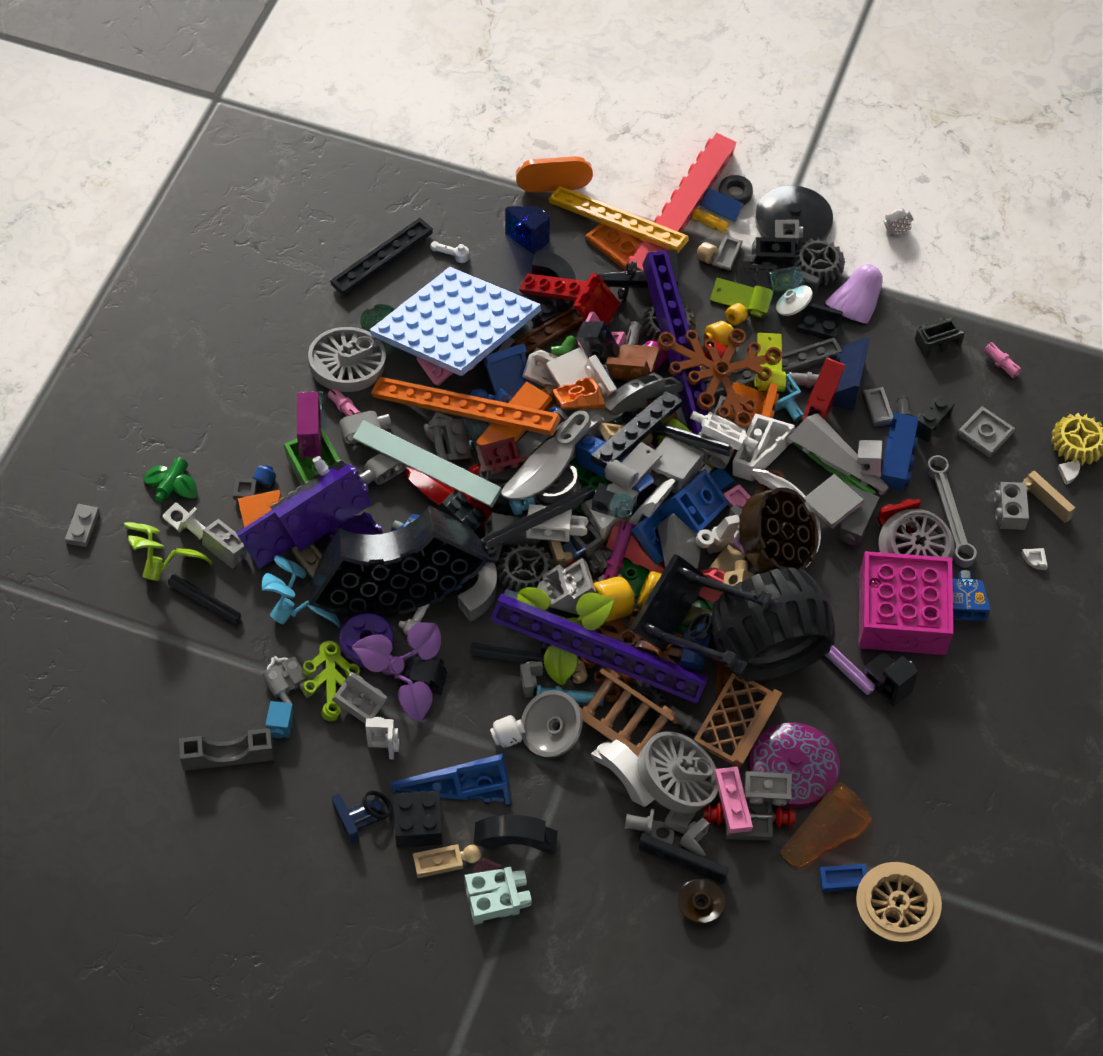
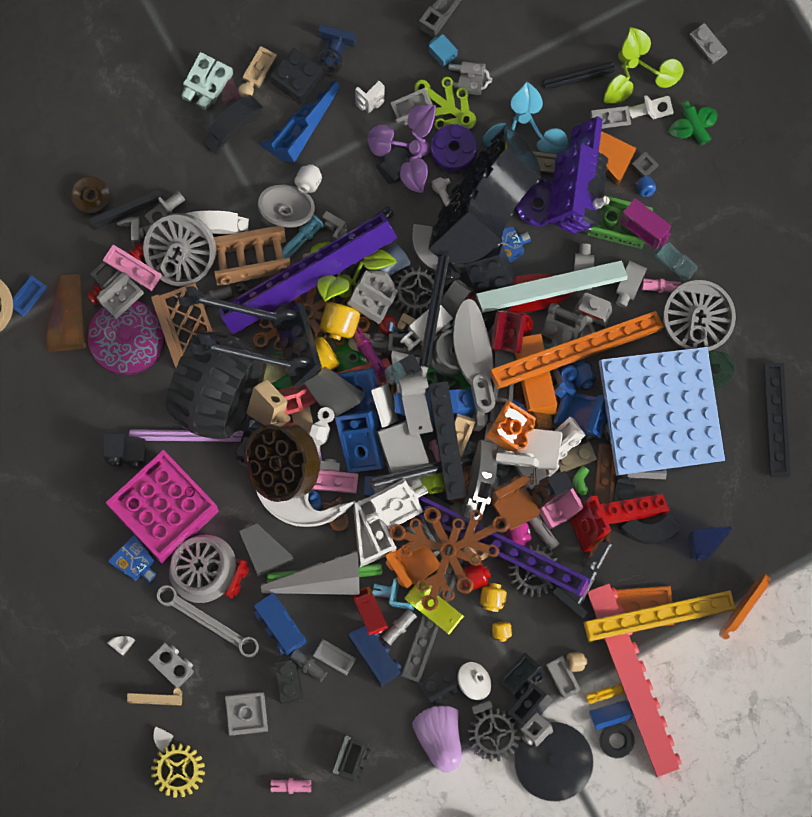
camera: 130 degrees right, 20 degrees up
(413, 425) = (594, 307): none -> light grey torso
(461, 252) = (731, 480): white piece -> none
(701, 636) = (257, 339): piece -> none
(754, 299) = (512, 649): lime door -> none
(786, 278) = (495, 689): clear light blue brick -> none
(833, 501) = (281, 536): light grey tile -> none
(870, 453) = (293, 599): light grey hinge -> none

